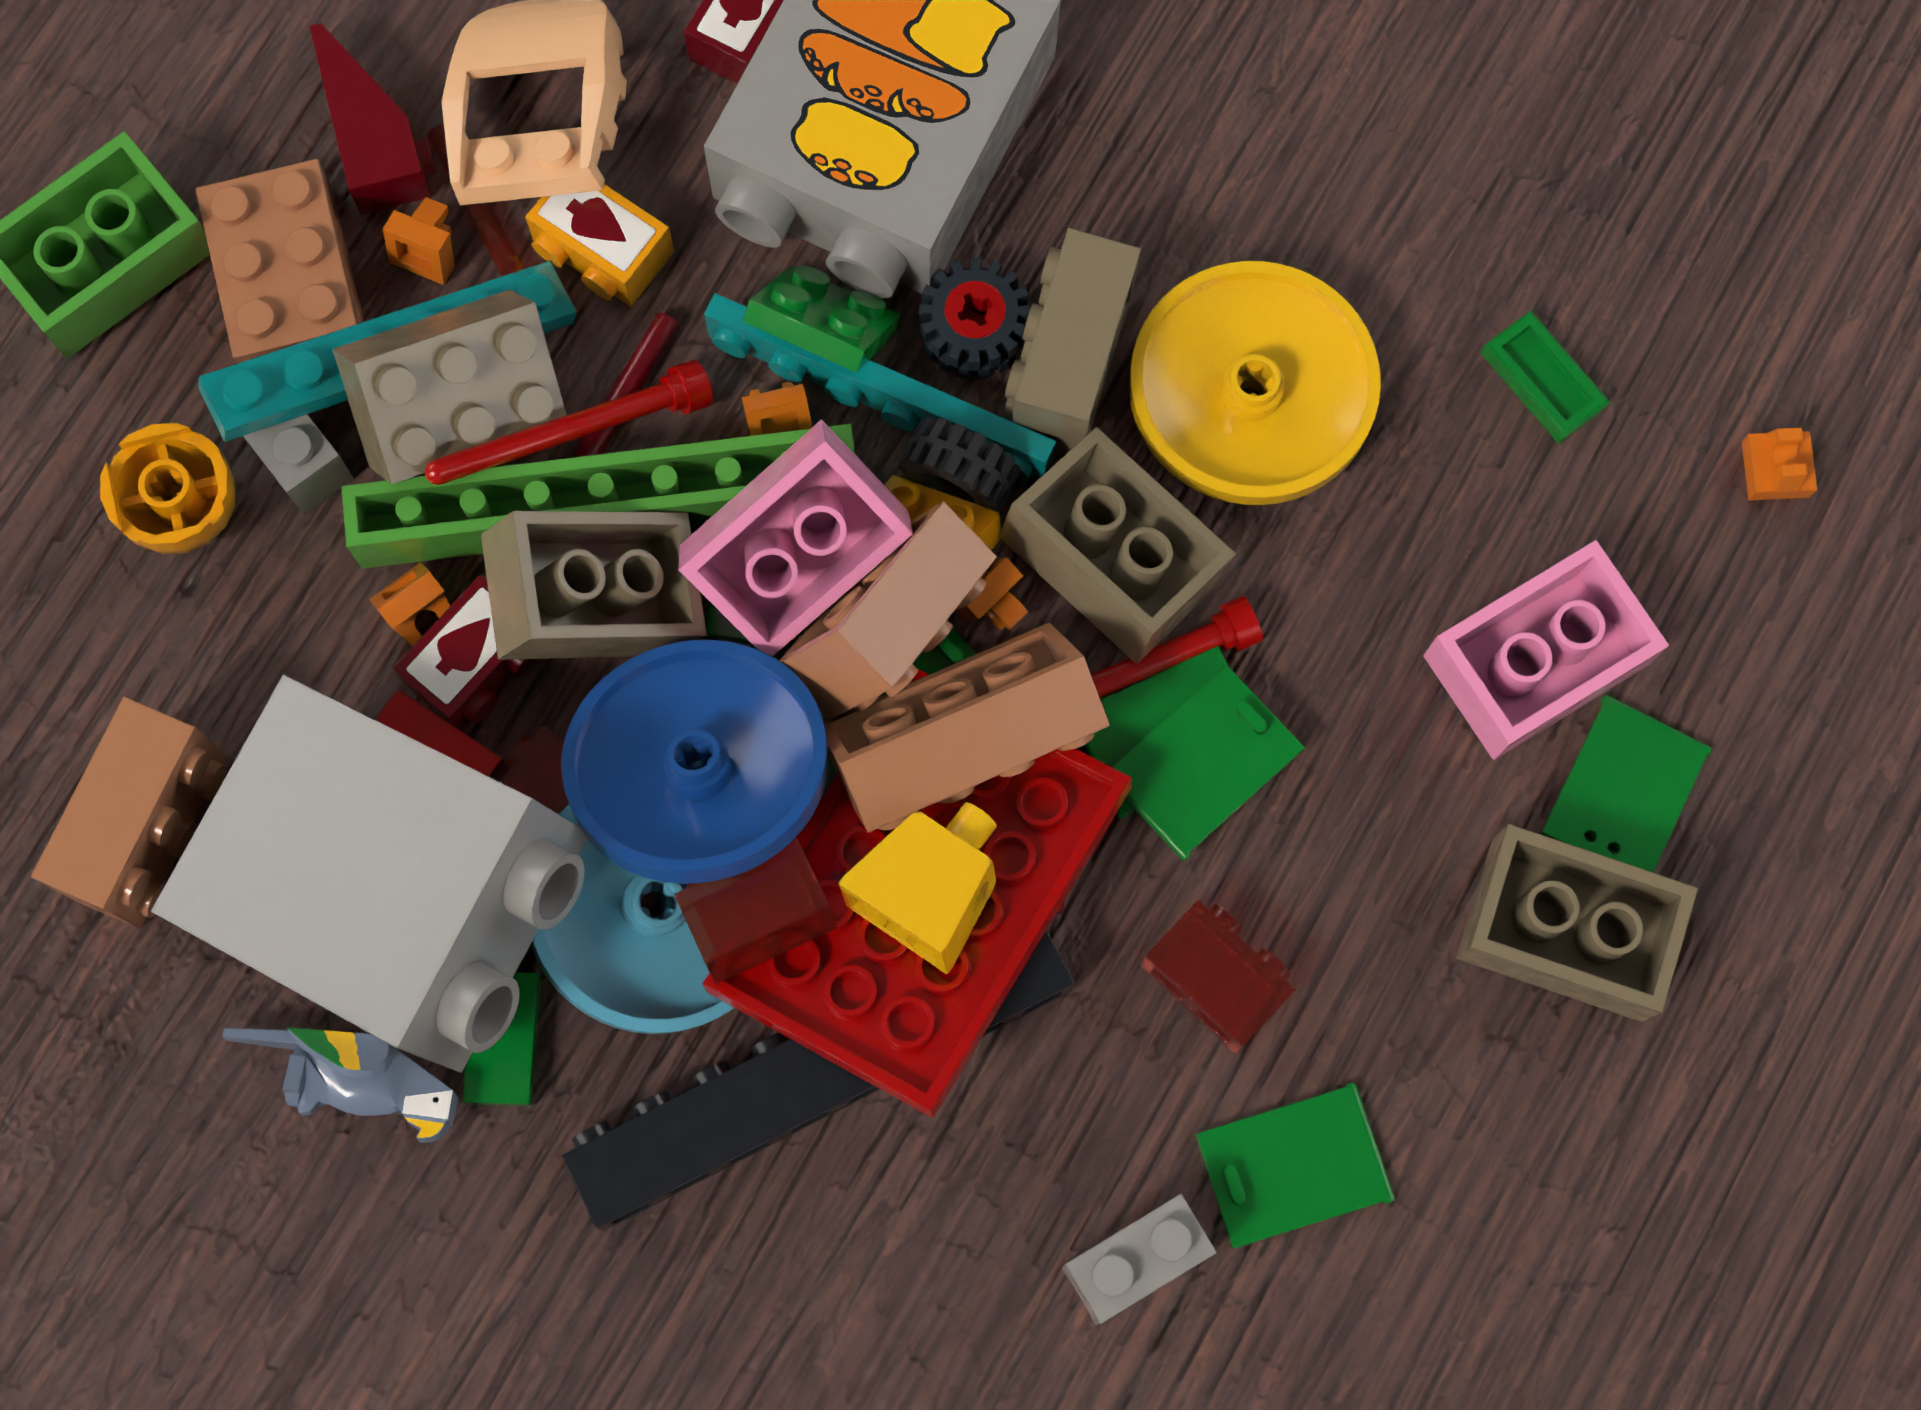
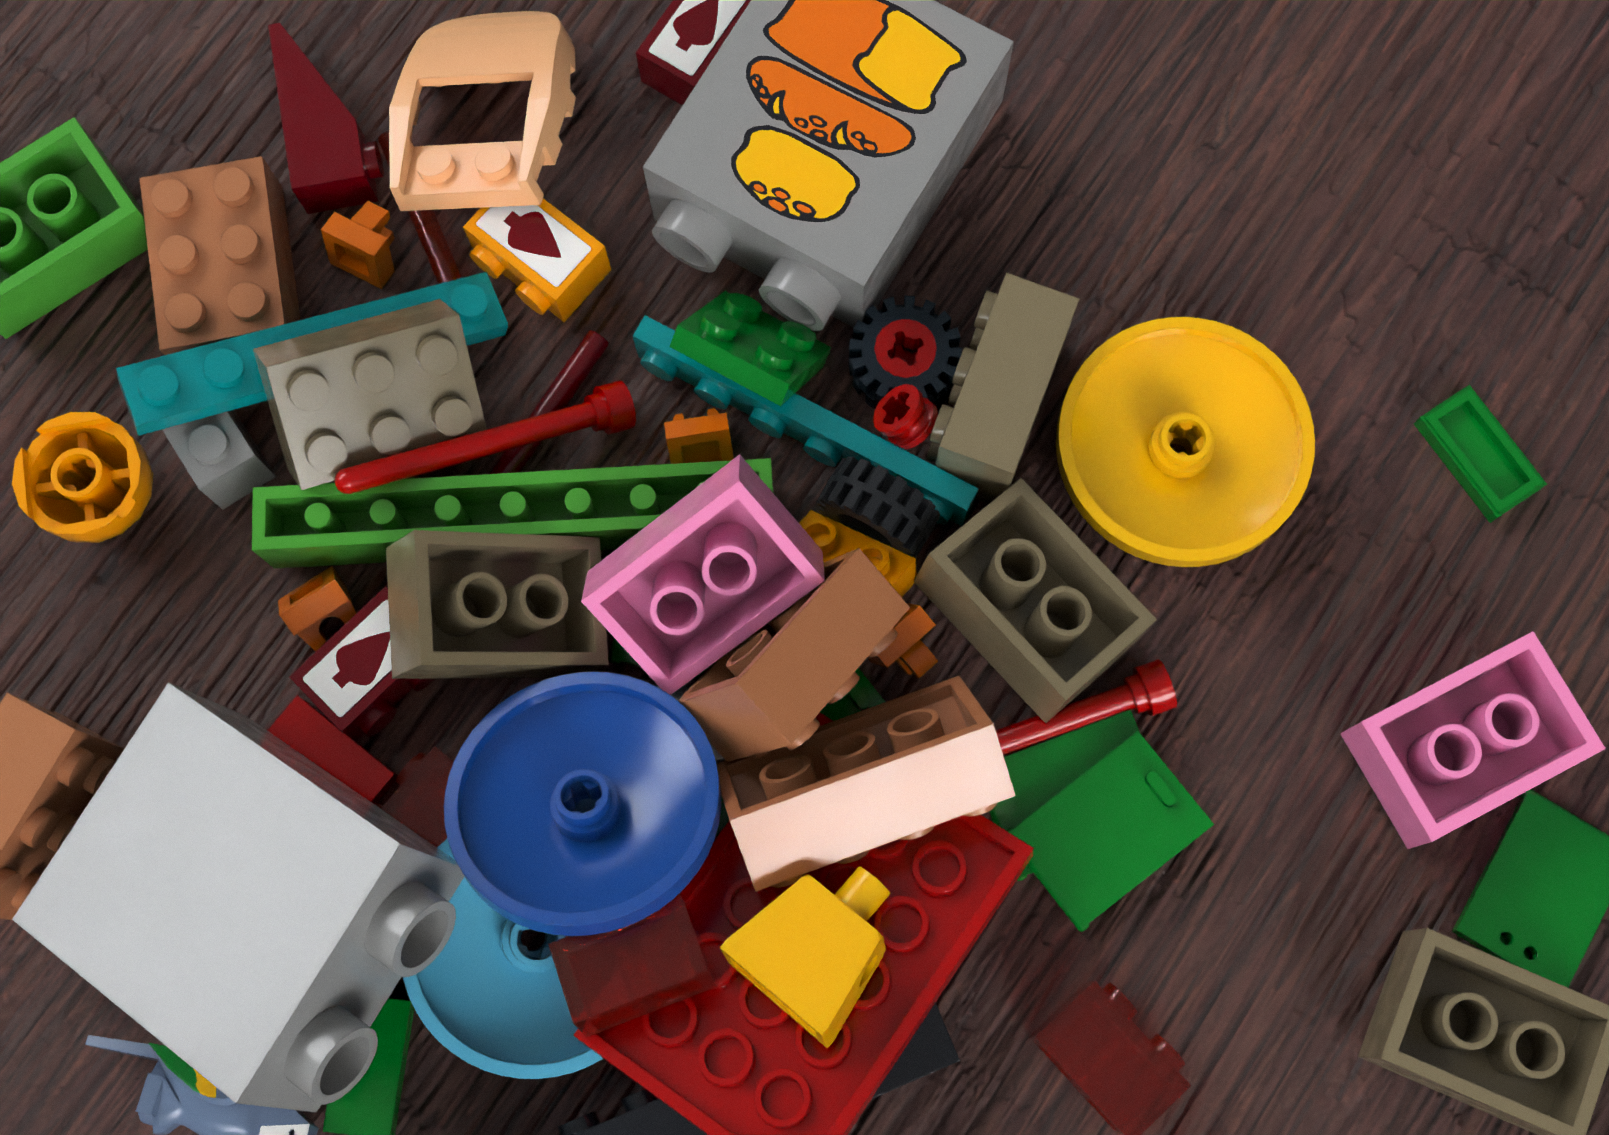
camera: 10 degrees right, 0 degrees up
(979, 375) = (905, 416): none -> red bush

